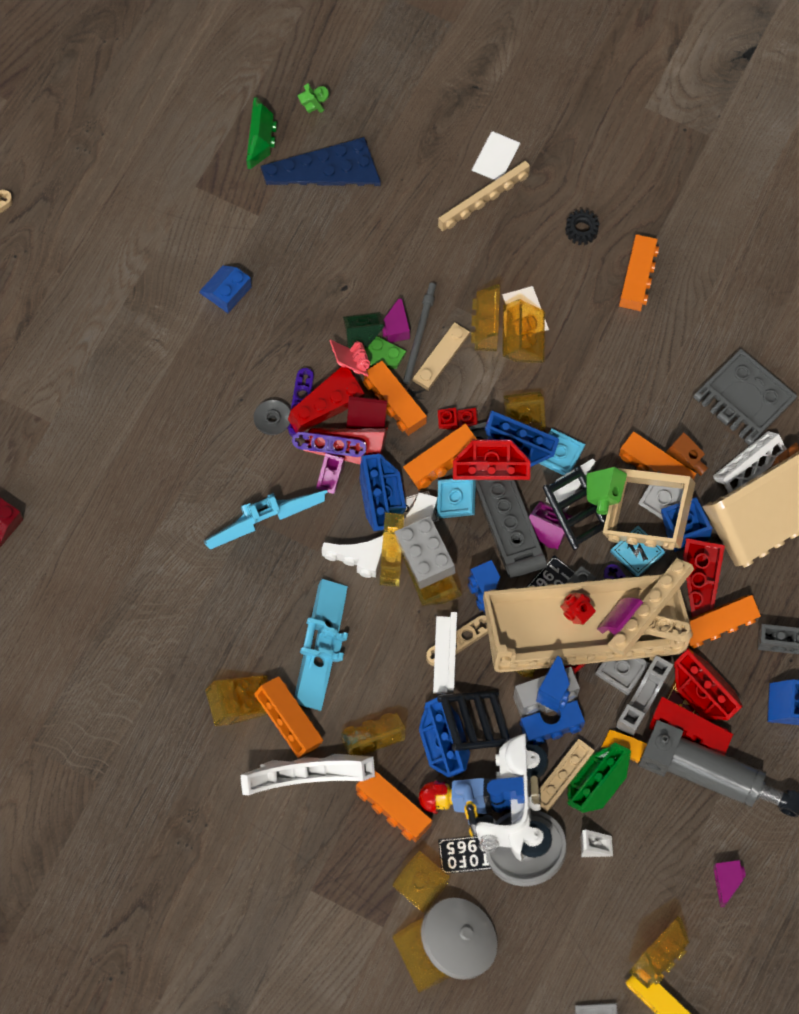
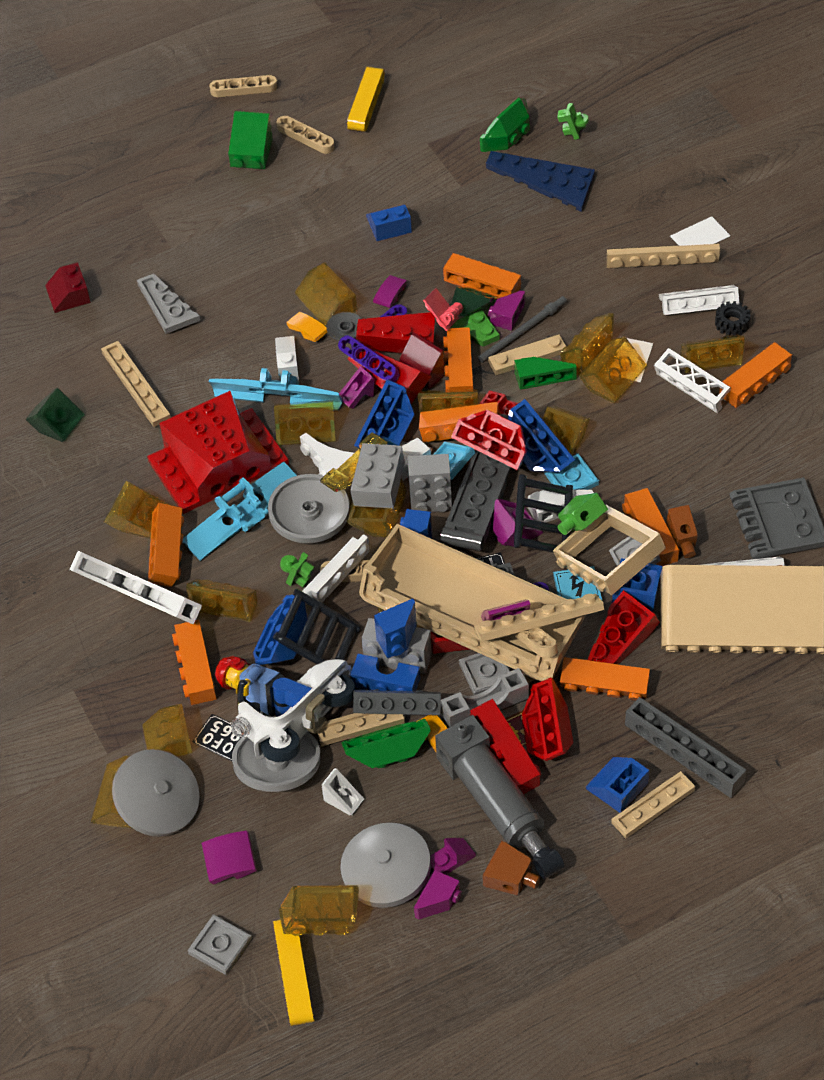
camera: 40 degrees right, 15 degrees down
(41, 274) = (250, 140): none -> green slope
(80, 238) = (322, 143): none -> tan beam
(91, 652) = (55, 416): none -> clear green slope
(96, 484) = (166, 305): none -> light grey wing
(108, 169) = (366, 99): none -> yellow beam
(134, 578) = (135, 383): none -> tan plate
(231, 395) = (325, 293): none -> clear yellow slope
(238, 434) = (308, 326): none -> light orange slope
(244, 476) = (286, 356): none -> white slope
(259, 607) = (212, 450): none -> red wedge
(281, 359) = (389, 290): none -> magenta slope
(309, 529) = (310, 417): none -> clear yellow slope
(350, 302) = (481, 276): none -> orange brick
(377, 613) = (307, 509): none -> light grey dish
(414, 673) = (298, 571): none -> bright green hips
(415, 442) = (446, 399): none -> clear yellow slope
(466, 368) = (539, 372): none -> green slope
(466, 532) = (430, 482): none -> light grey brick
(542, 222) = (698, 299): none -> white fence
(550, 951) = (229, 856): none -> magenta slope
(577, 608) = (468, 591): red brick -> none
(582, 743) = (397, 702): none -> dark grey plate
(589, 313) = (688, 386): none -> white fence
(591, 270) = (714, 352): none -> clear yellow slope
(671, 880) = (386, 864): none -> light grey dish
(711, 843) = (453, 855): none -> magenta slope
(764, 825) = (509, 871): none -> dark orange torso

